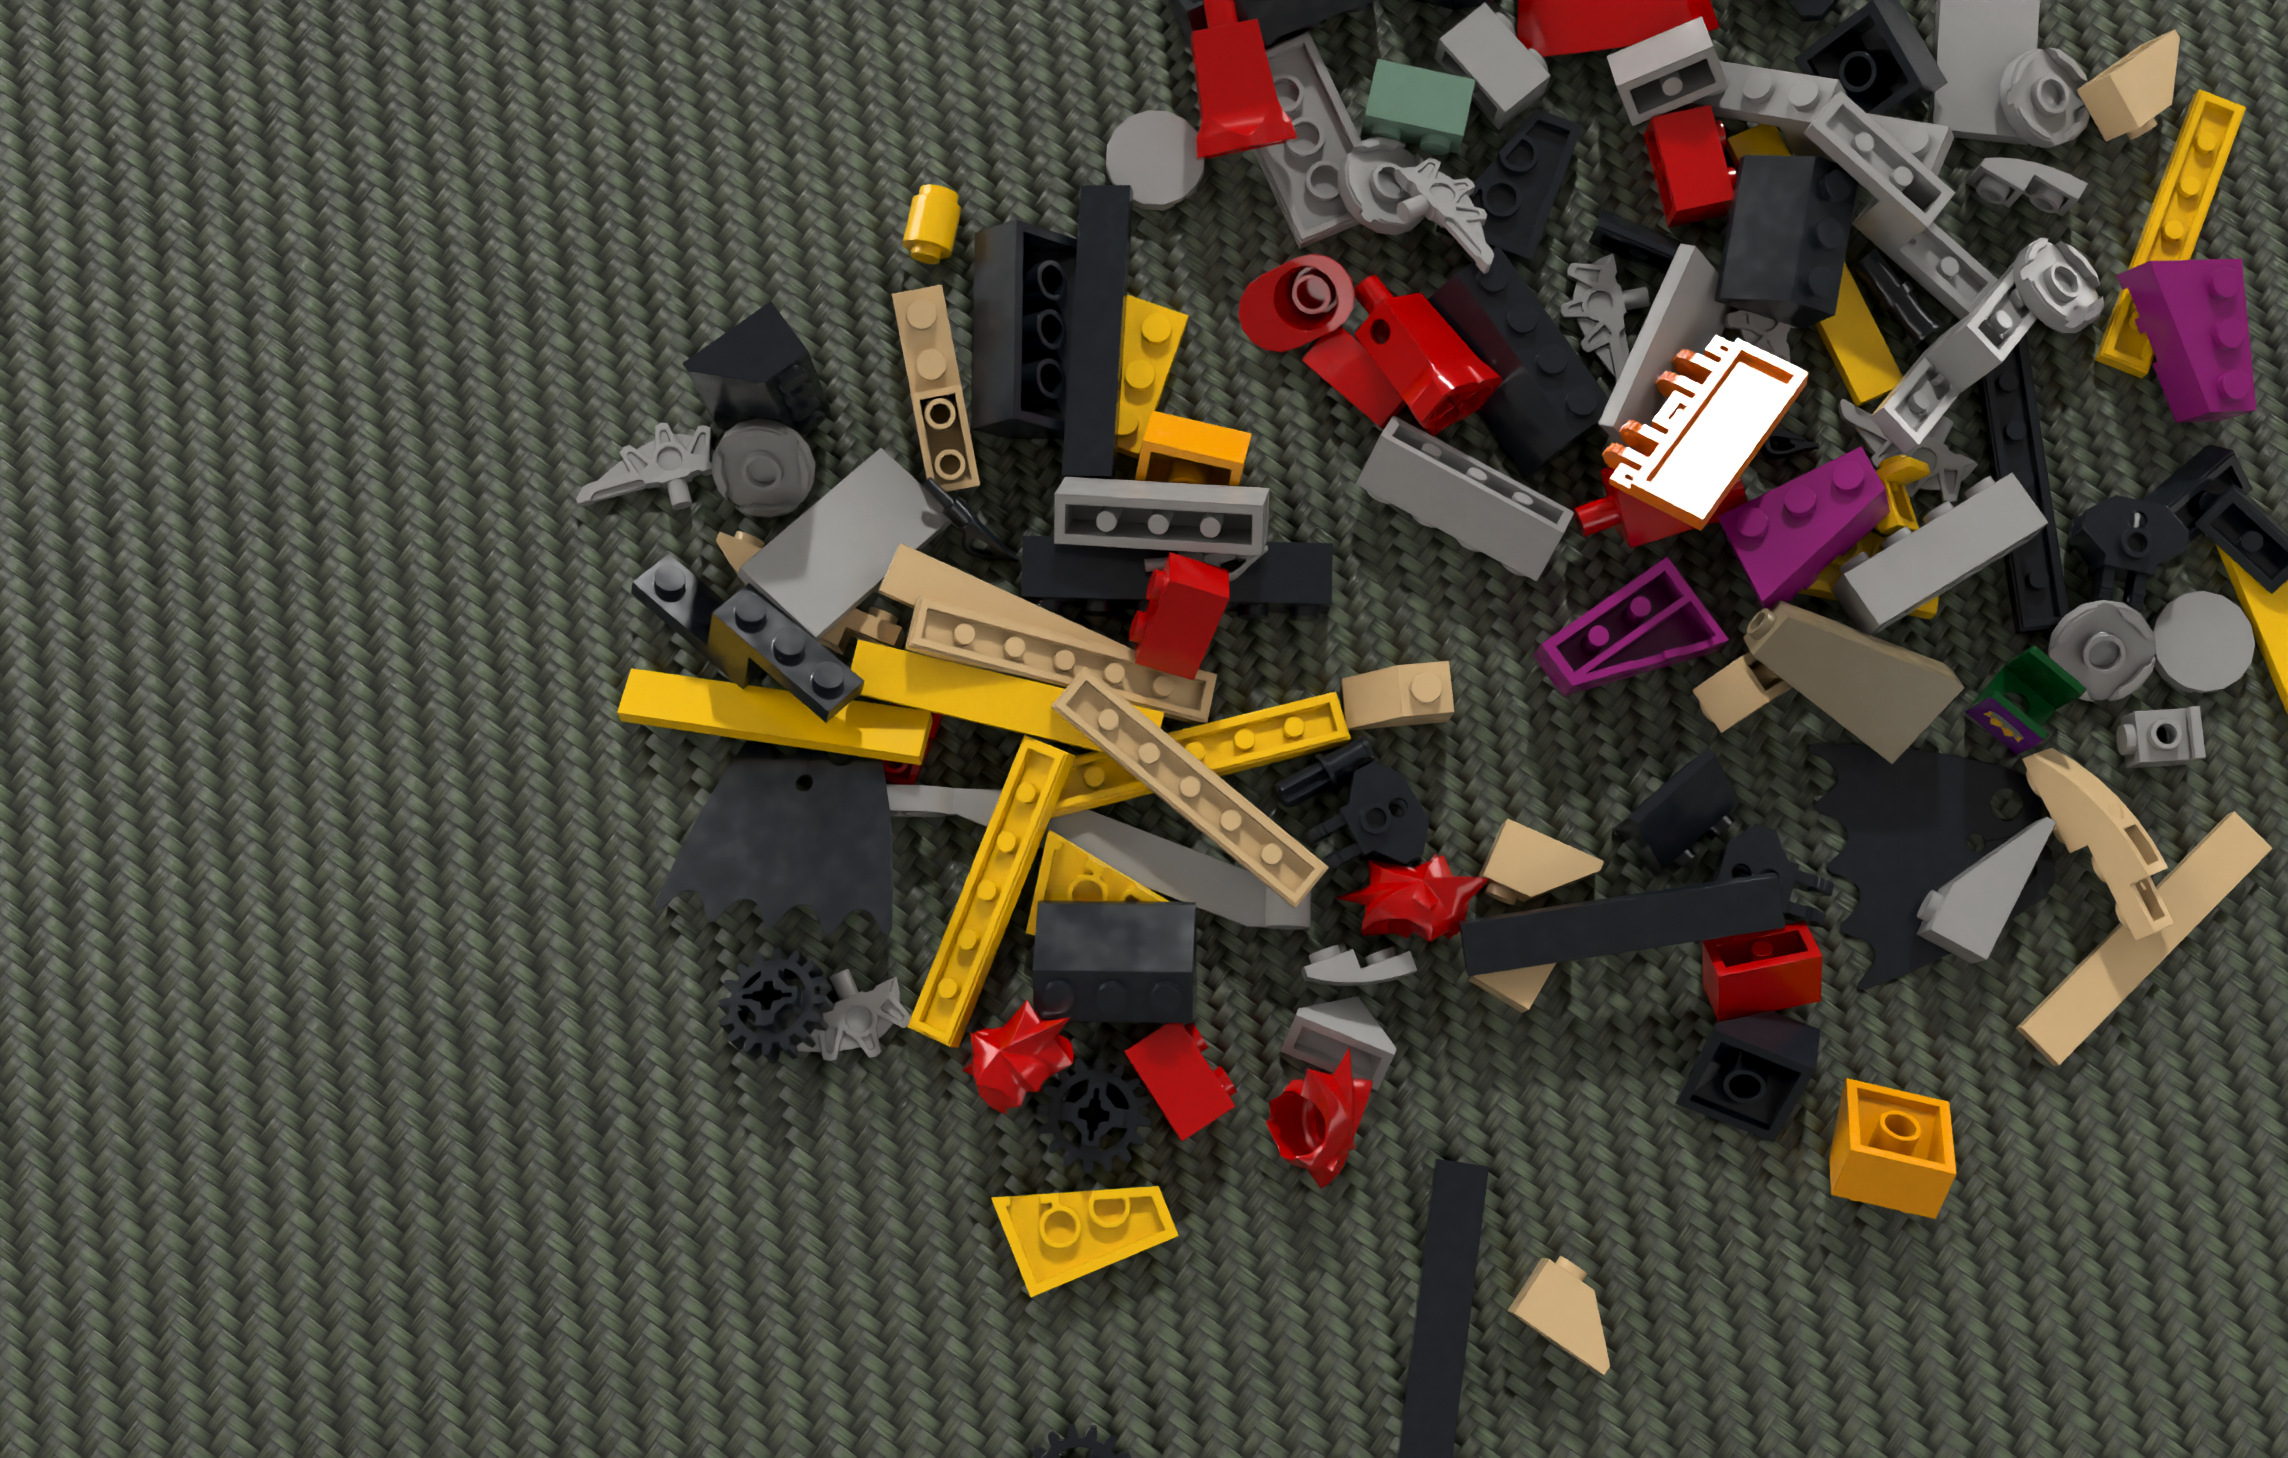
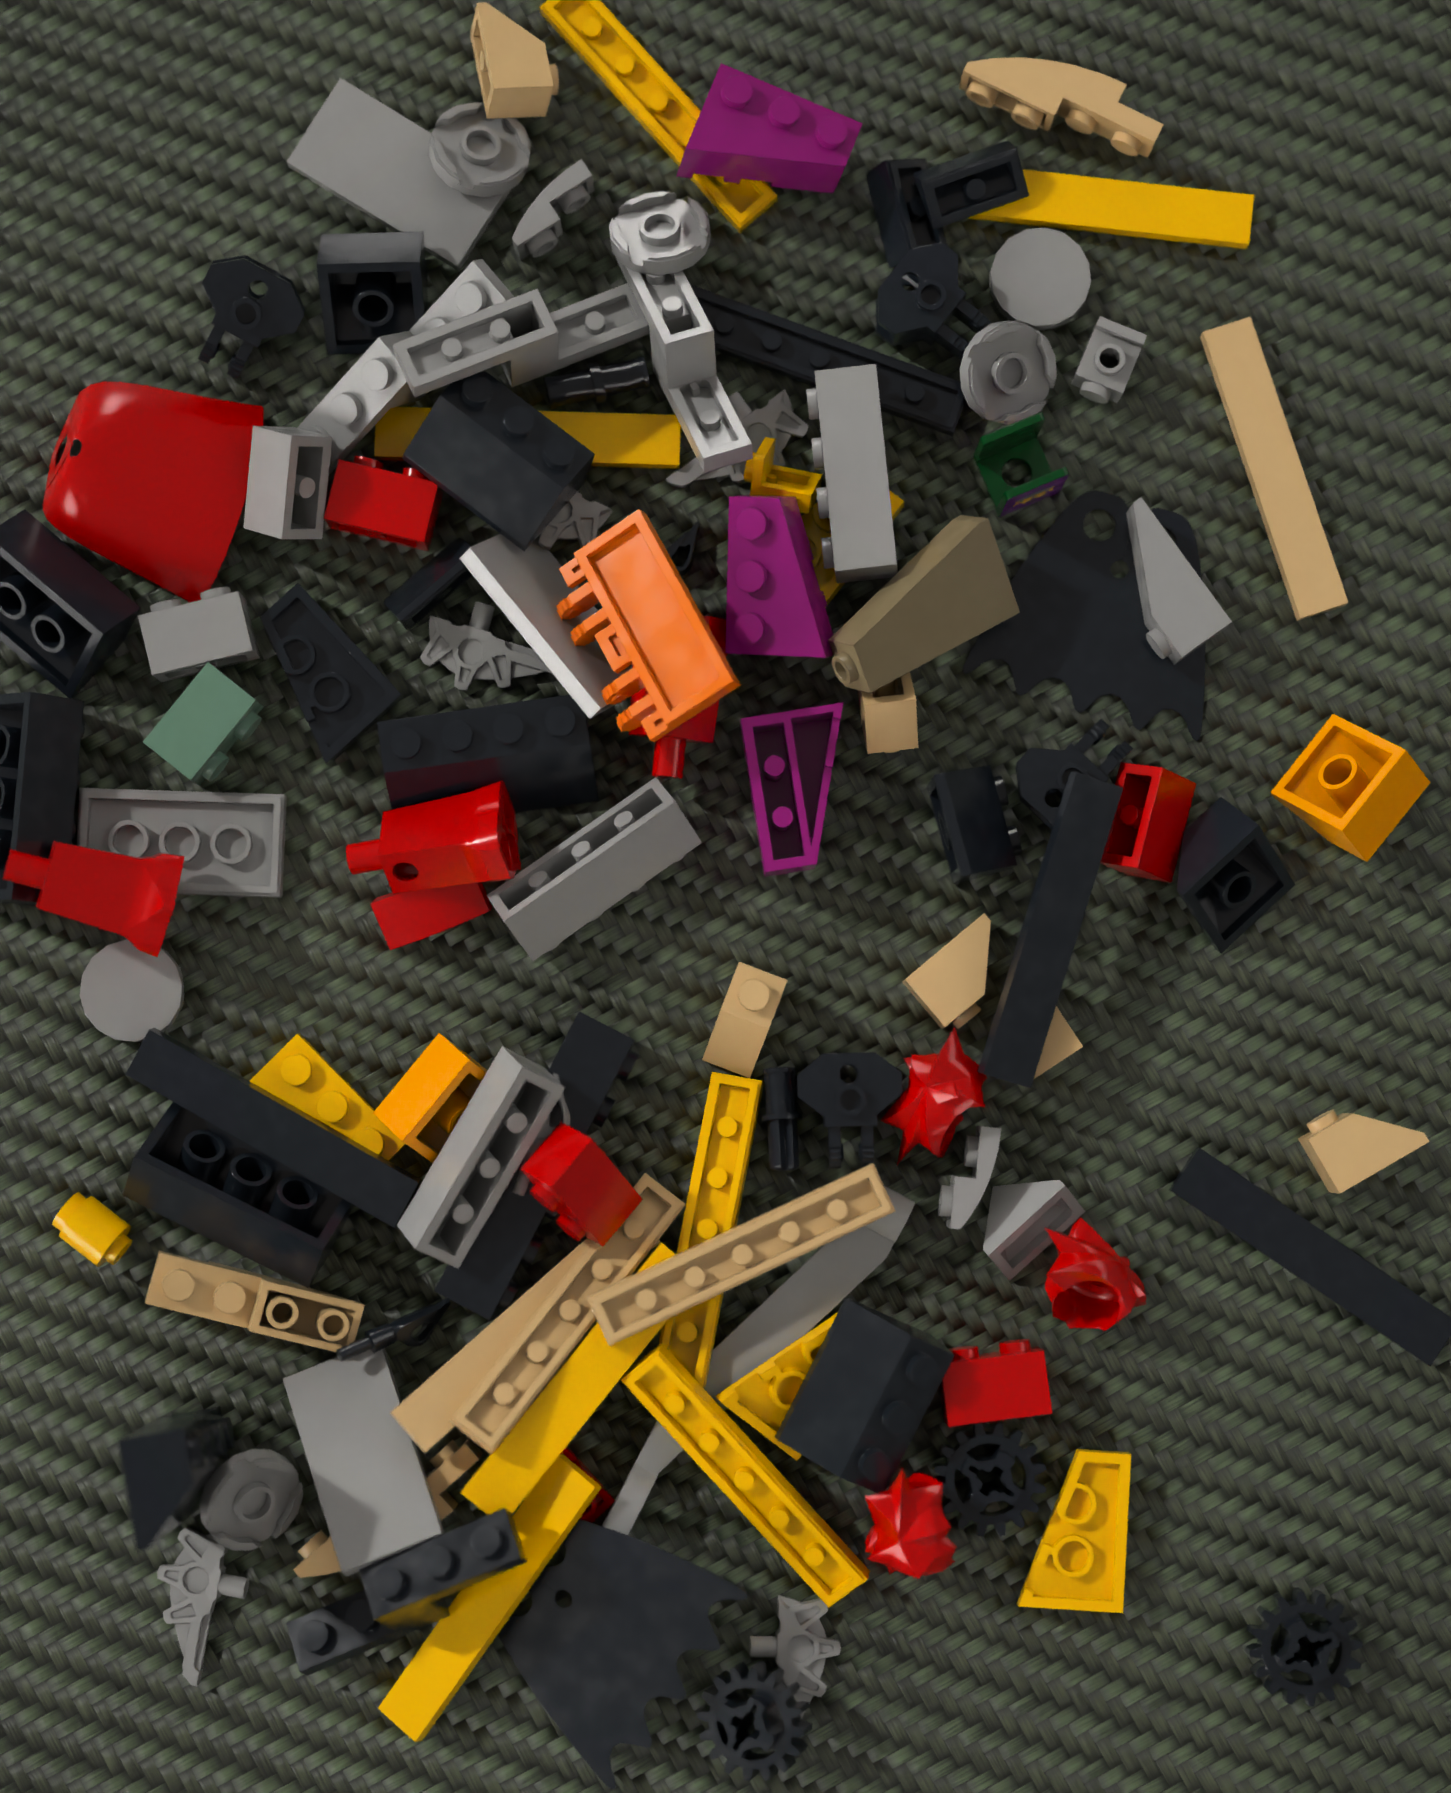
camera: 65 degrees left, 5 degrees up
(1296, 303) = (337, 931): red piece -> none
(1370, 186) = (265, 792): light grey tile -> none
(1446, 204) = (314, 747): light grey piece -> none
(2096, 818) = (1155, 457): tan slope -> none

